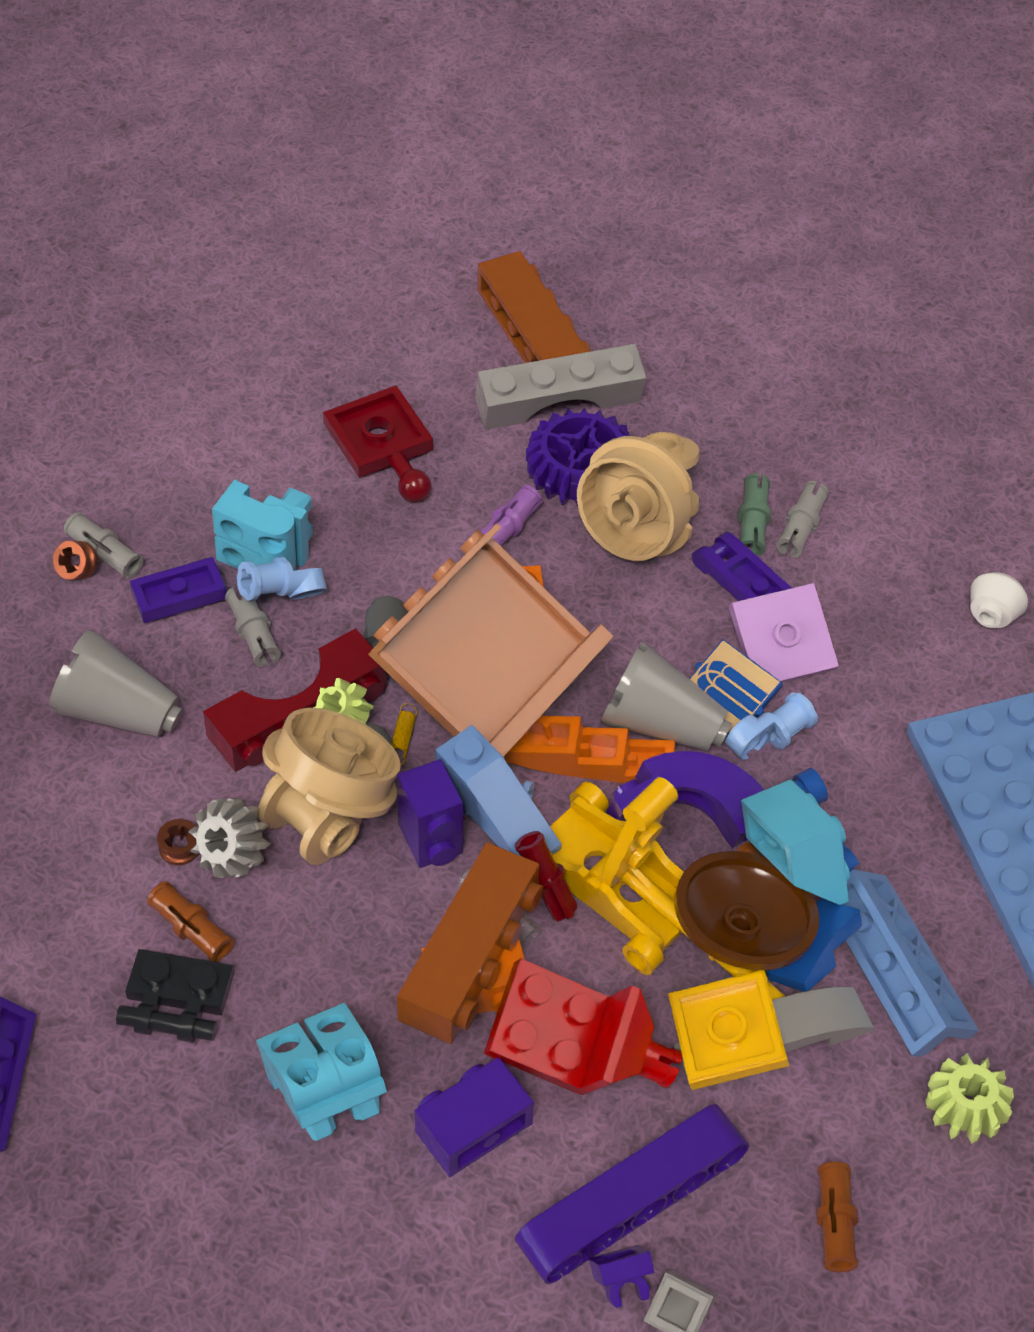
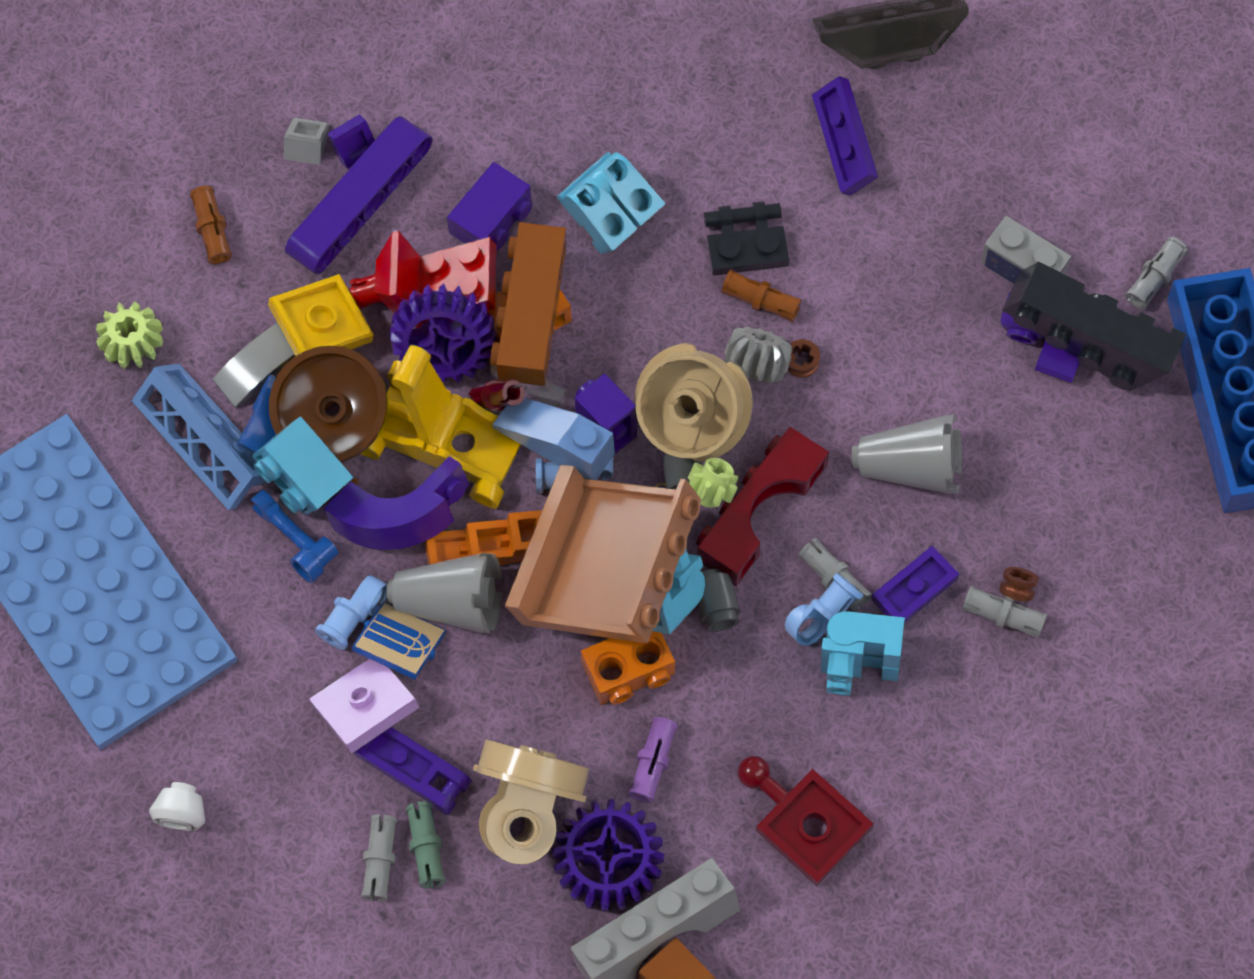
camera: 165 degrees right, 15 degrees up
(585, 952) = (450, 324): none -> dark purple gear

